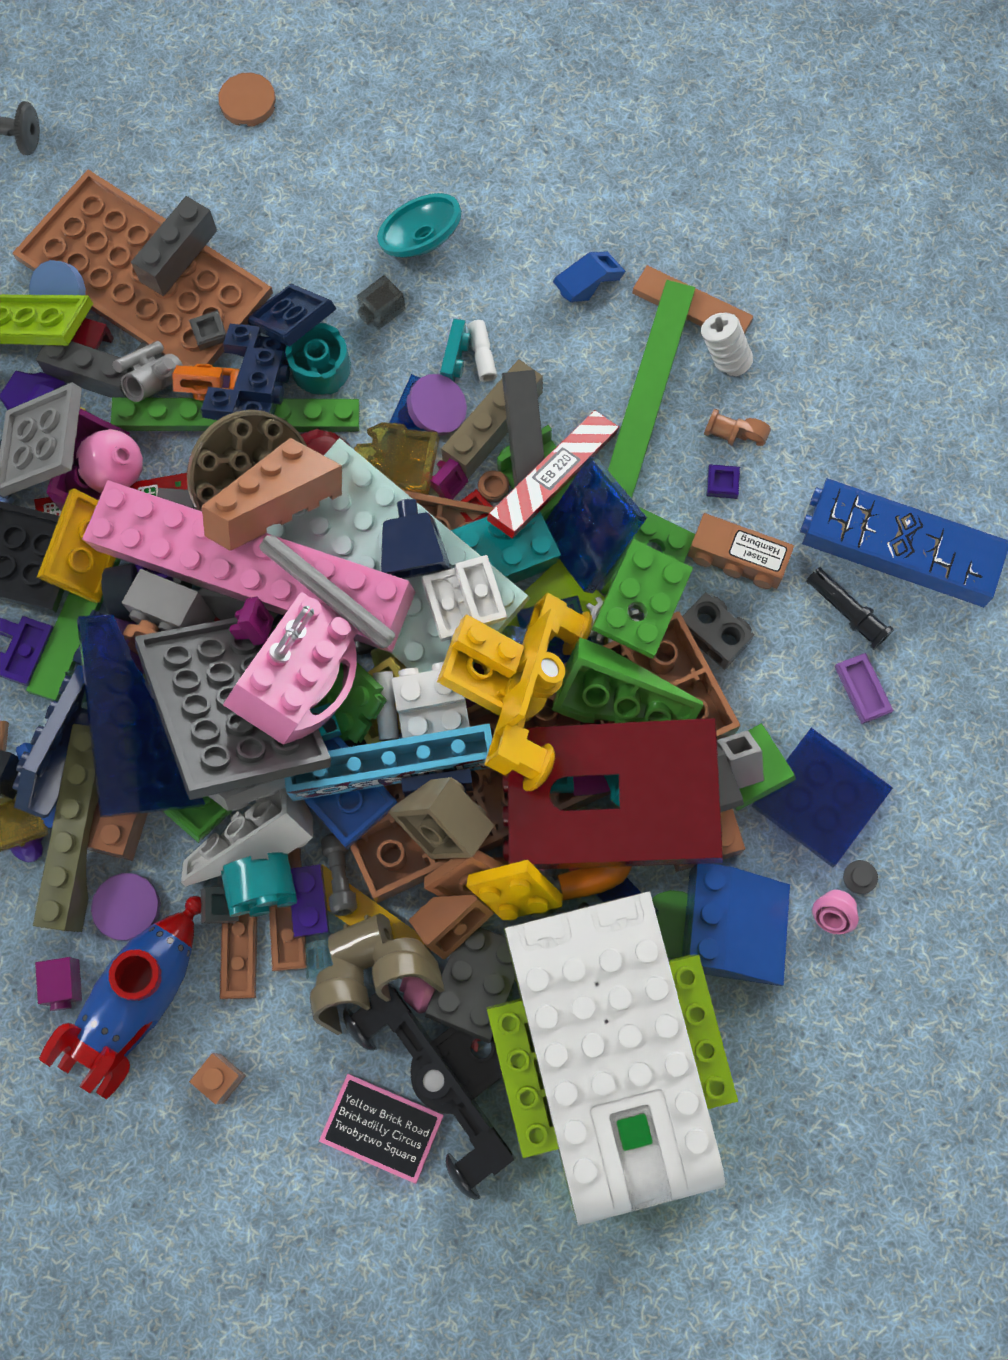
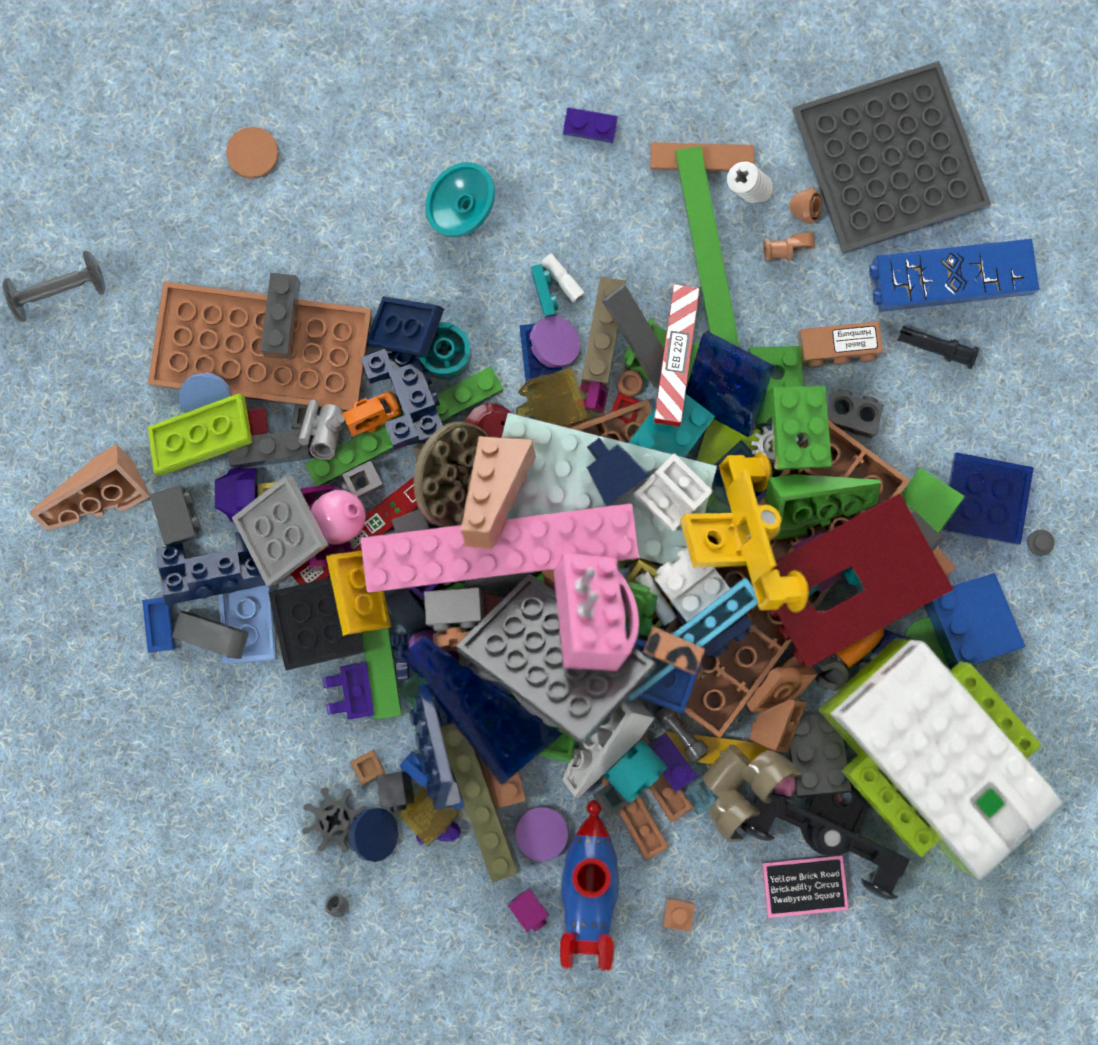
camera: 35 degrees left, 10 degrees up
(162, 435) = (366, 471): none -> light grey brick
(208, 330) = (345, 370): dark grey tile -> none
(253, 622) = (533, 588): magenta tile -> none
(327, 591) = (579, 542): light grey axle -> none
(362, 760) = (673, 650): none -> slope
(380, 303) = (463, 279): clear smoke brick -> none
(443, 819) = (747, 661): dark tan slope -> none
(487, 646) = (711, 521): yellow plate -> none
(515, 890) = (817, 681): yellow plate -> none
(586, 274) = (612, 175): blue slope -> none
(594, 223) = (590, 125): none -> dark purple plate
(723, 481) = (798, 292): dark purple tile -> none
(744, 758) = (925, 503): light grey brick -> none
(778, 398) = (806, 205): none -> nougat cone
(836, 912) = (1037, 576): bright pink cone -> none
(863, 688) = (977, 402): medium lavender tile -> none
(895, 395) = (891, 157): none -> dark grey plate

